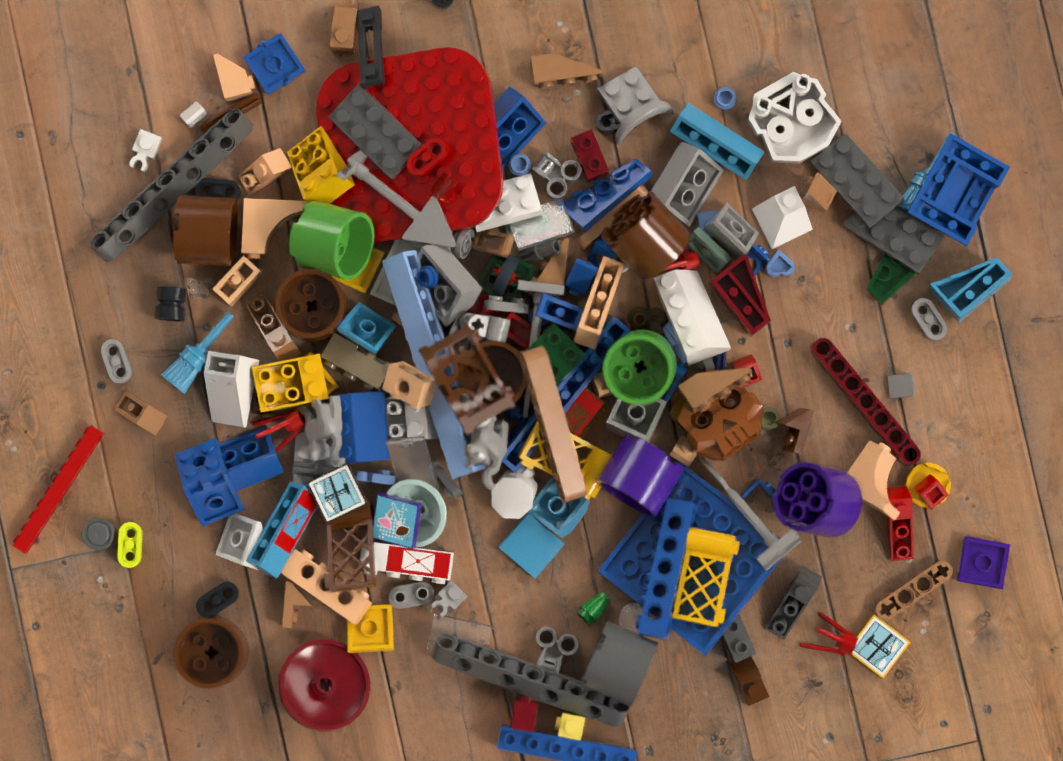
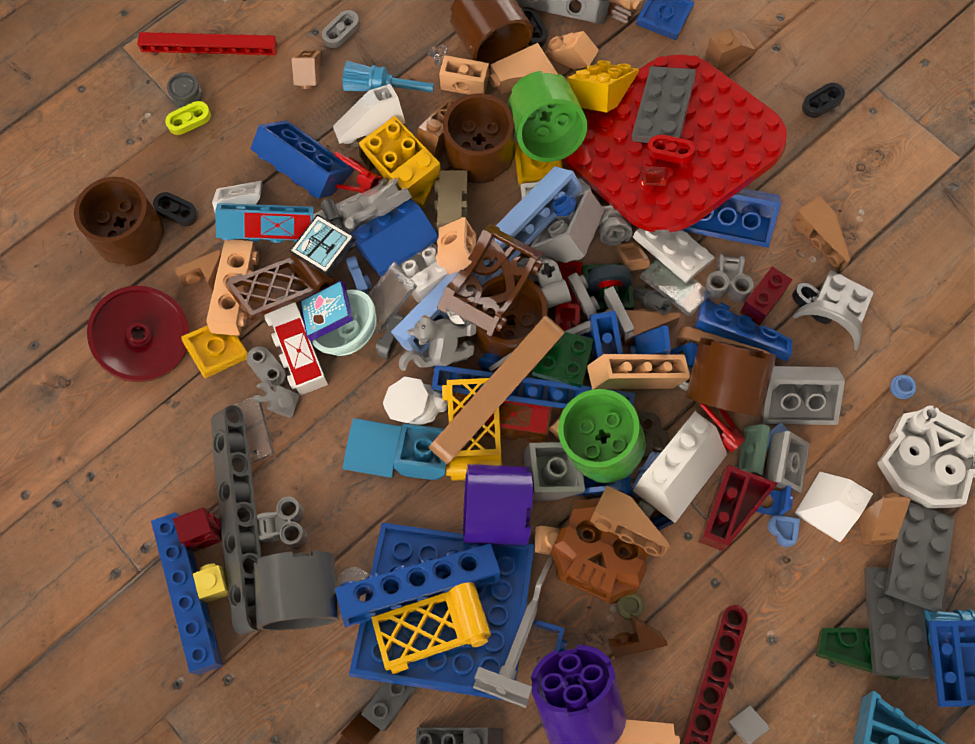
camera: 65 degrees right, 15 degrees down
(170, 303) = (413, 39): black wheel -> none
(208, 482) = (272, 135): blue bracket -> none
(366, 328) = (487, 193): dark azure slope -> none
(370, 73) = (750, 60): black container -> none
(427, 226) = (615, 185): light grey piece -> none
(519, 164) = (716, 244): medium blue plate -> none
(593, 608) = (343, 540): green cone -> none
(717, 141) = (860, 400): dark azure brick -> none
(748, 362) = (664, 565): red slope -> none
(930, 318) = (837, 716): light grey plate -> none

